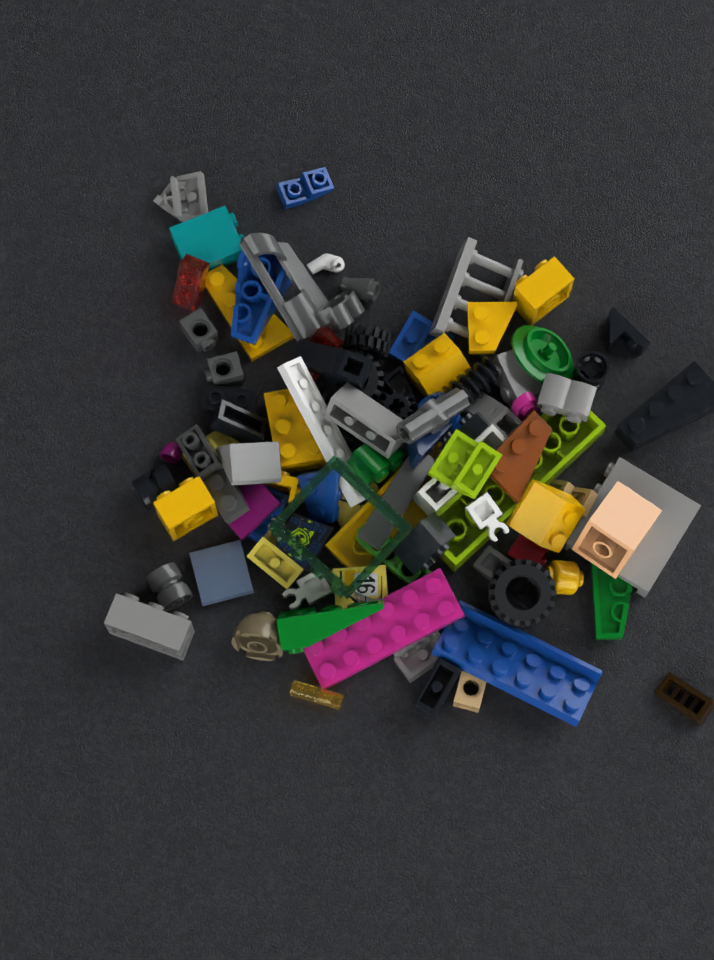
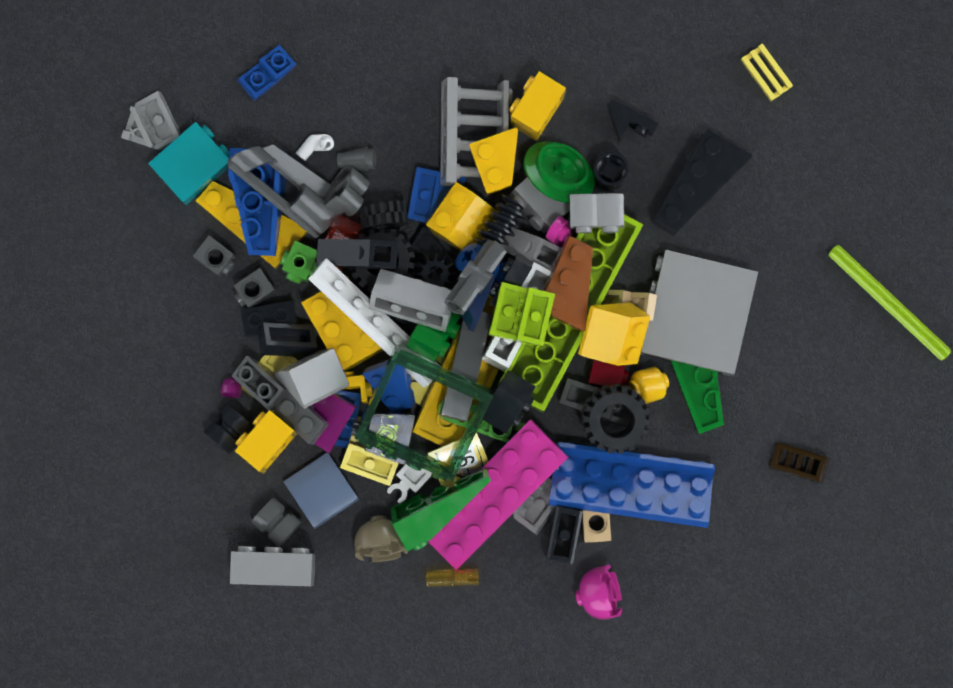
camera: 20 degrees left, 10 degrees up
(190, 282) = (189, 213): clear red piece -> none
(271, 357) = (298, 253): none -> bright green brick
(452, 756) = (600, 593): none -> dark pink cylinder
(484, 513) = (557, 353): white plate -> none
(616, 529) = (686, 325): light nougat slope -> none

